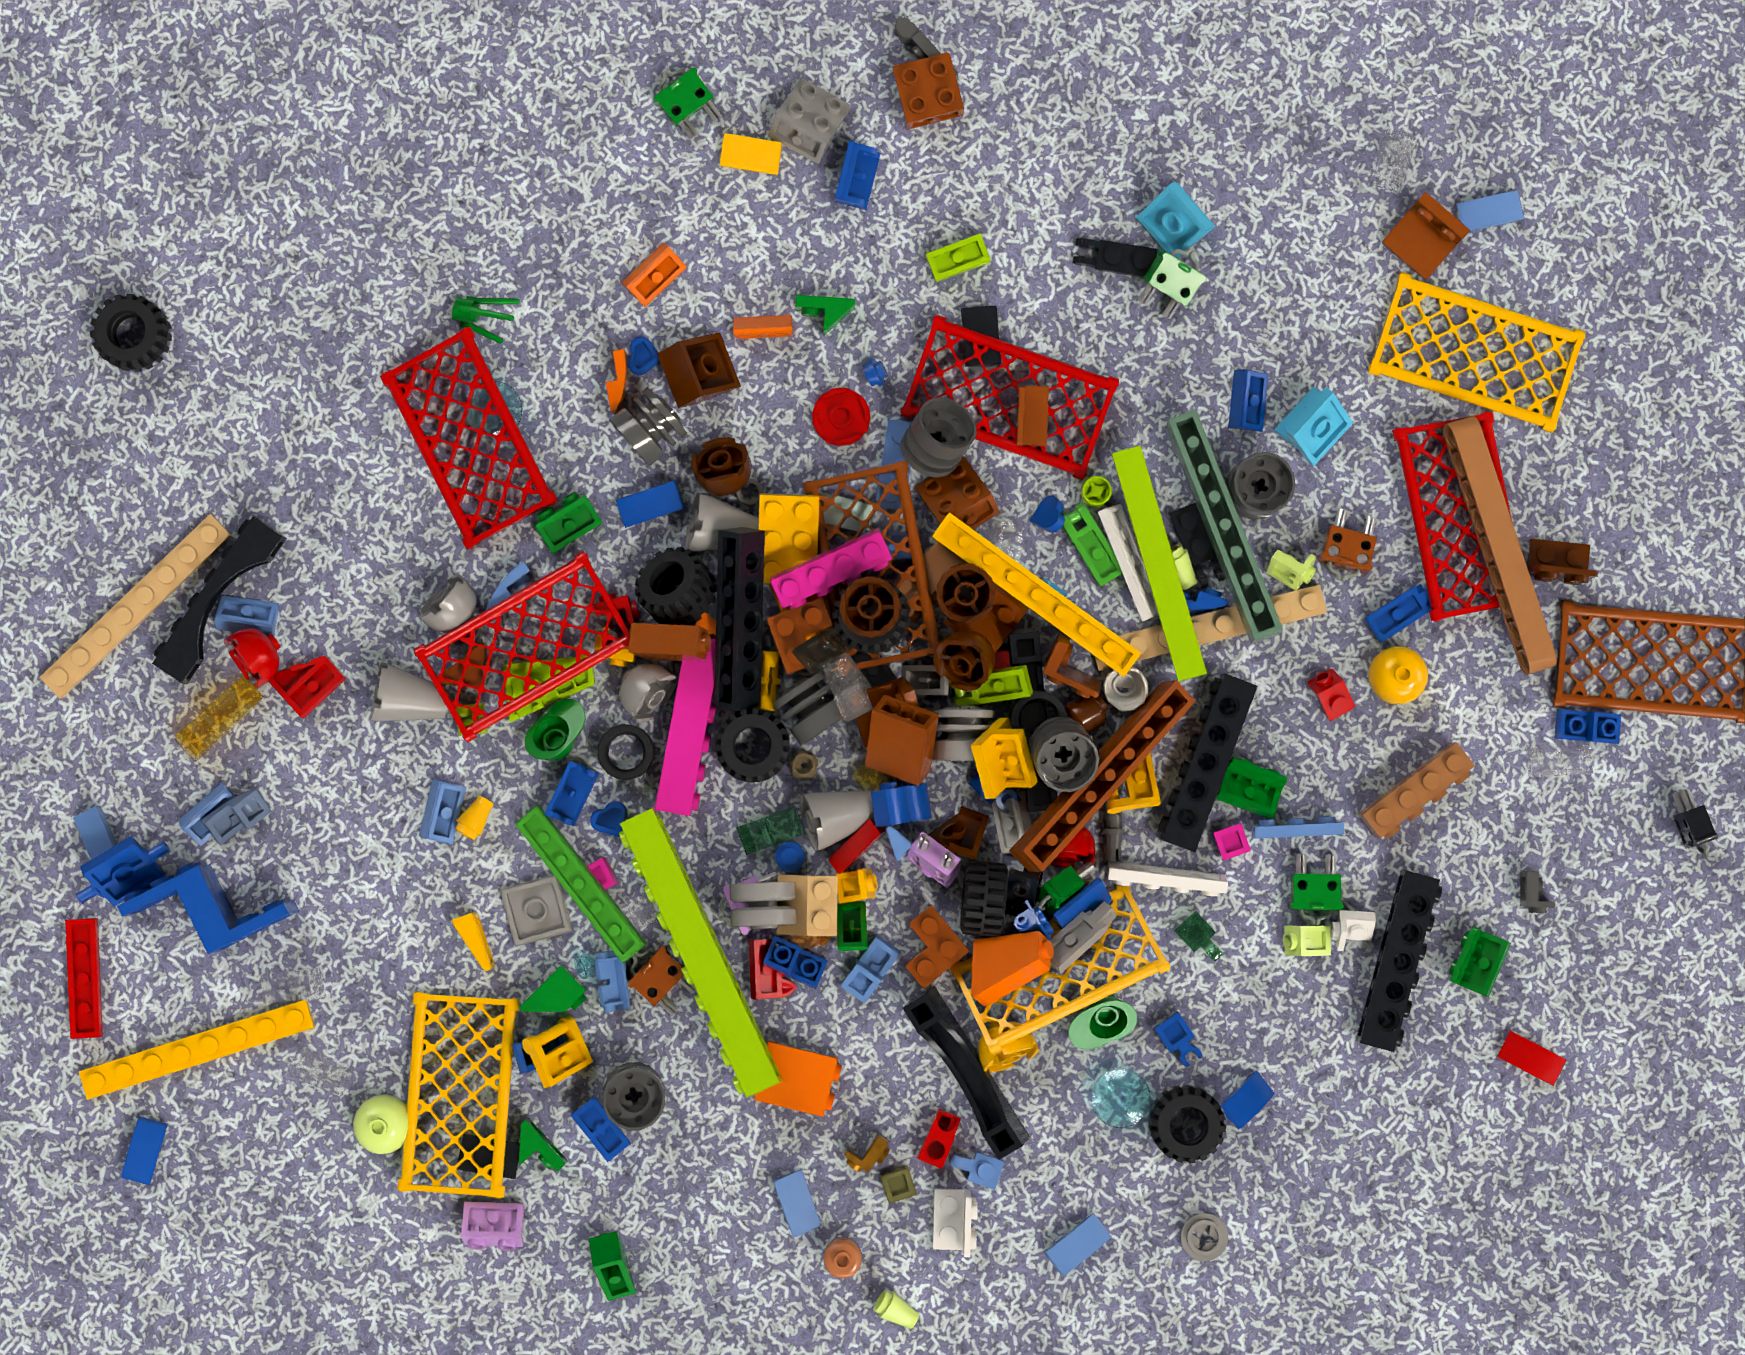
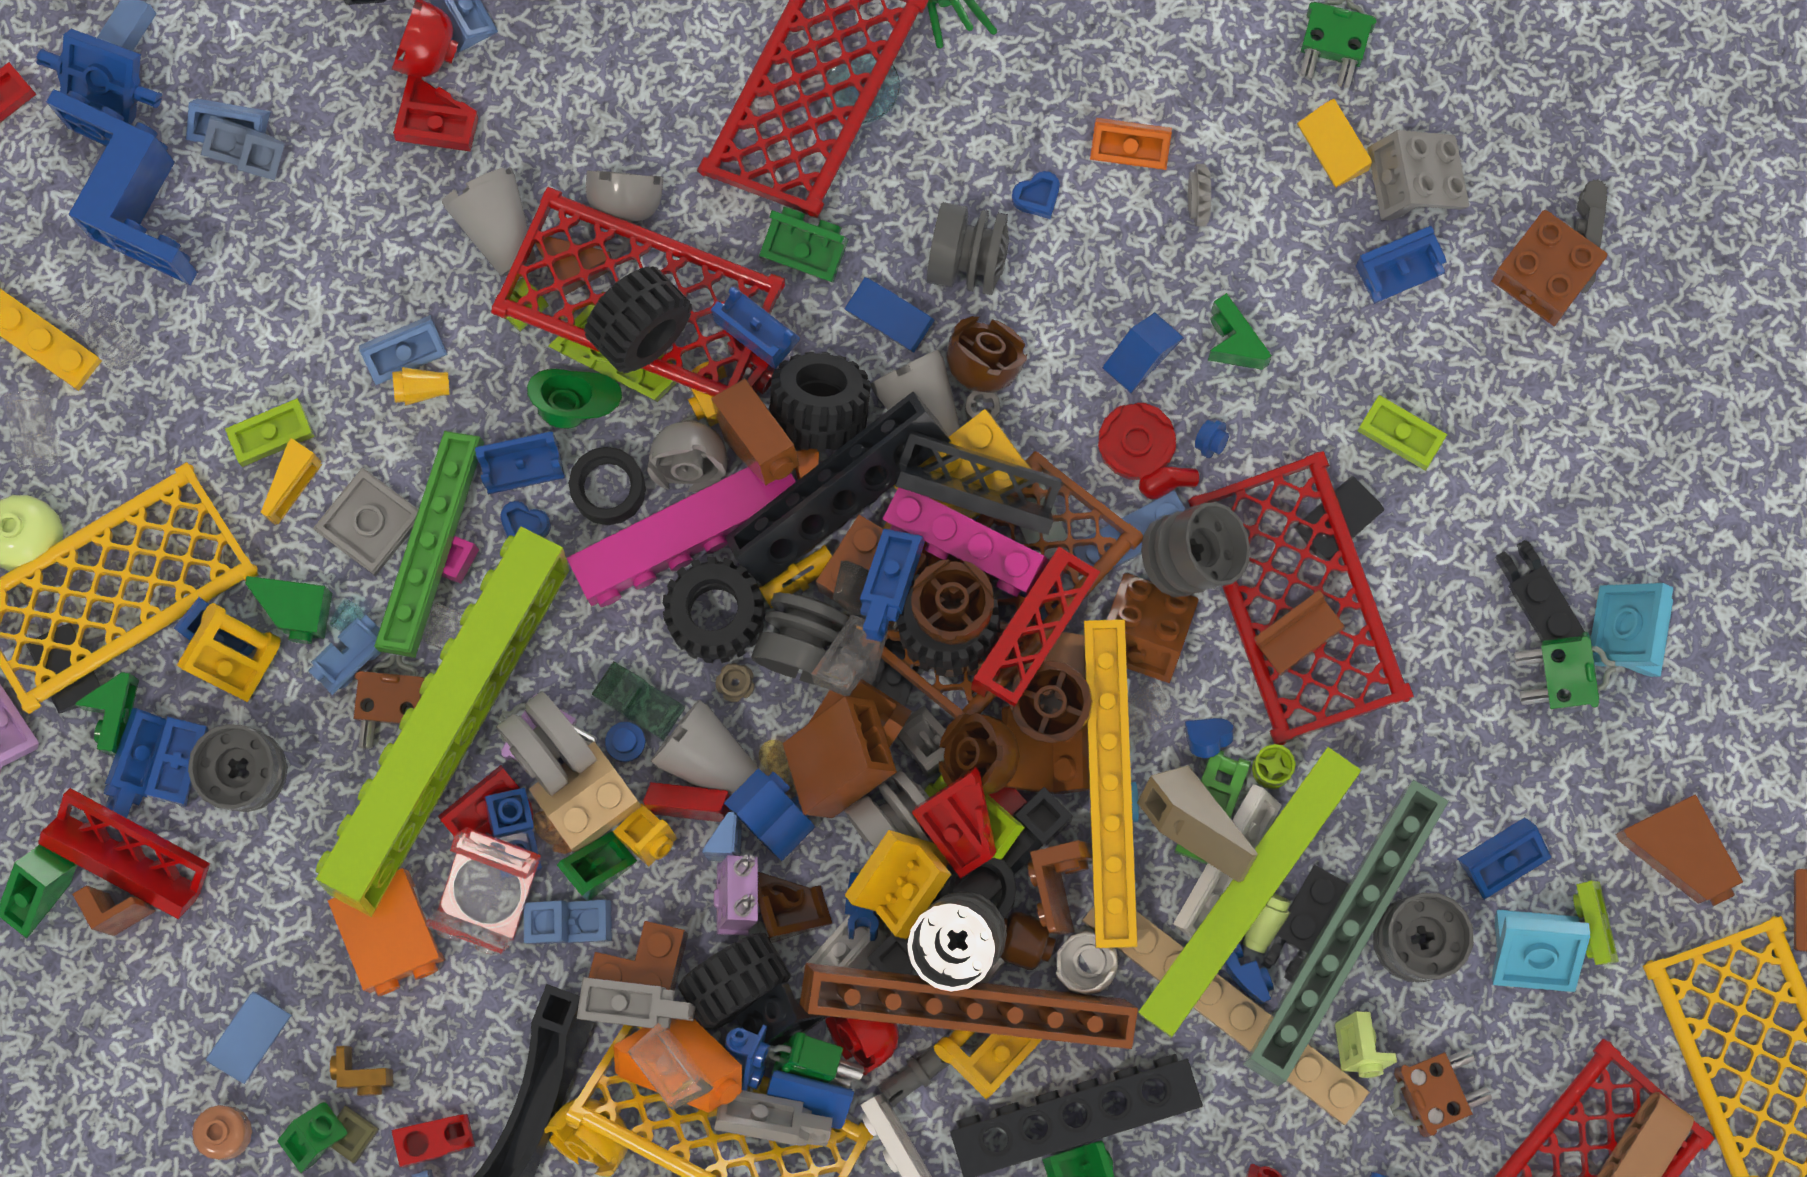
camera: 60 degrees right, 10 degrees down
(218, 718) = (331, 57): clear yellow slope -> none
(434, 929) = (269, 432): none -> lime plate
(516, 578) = (701, 236): medium blue slope -> none
(548, 659) = (638, 319): none -> black tyre
(580, 1155) = (133, 761): none -> blue hinge
(603, 592) = (754, 327): none -> blue hinge
(617, 388) = (983, 192): orange slope -> none
(636, 1203) = (124, 861): none -> red fence
(659, 1236) = (105, 915): none -> dark orange panel
(698, 369) = (1068, 257): reddish brown slope -> none
(722, 261) = (1199, 195): none -> light grey gear
(762, 326) = (1165, 290): orange slope -> none
(789, 370) = (1142, 351): none -> blue slope
(808, 544) = (973, 496): none -> black fence
(818, 1004) = (484, 891): none -> clear panel
(824, 632) = (889, 580): none -> blue hinge
(879, 418) = (1166, 480): none -> red arm
(884, 1207) = (311, 1136): none -> green bracket
(904, 570) = (1022, 620): none -> red fence
(954, 968) = (630, 1004): none -> light grey hinge
(997, 701) = (959, 823): none -> red wing
(1010, 973) = (669, 1067): none -> clear slope
(1091, 564) = (1194, 819): none -> dark tan slope
(1313, 375) = (1591, 906): none -> lime plate
(1323, 296) = (1685, 851): none -> dark orange slope

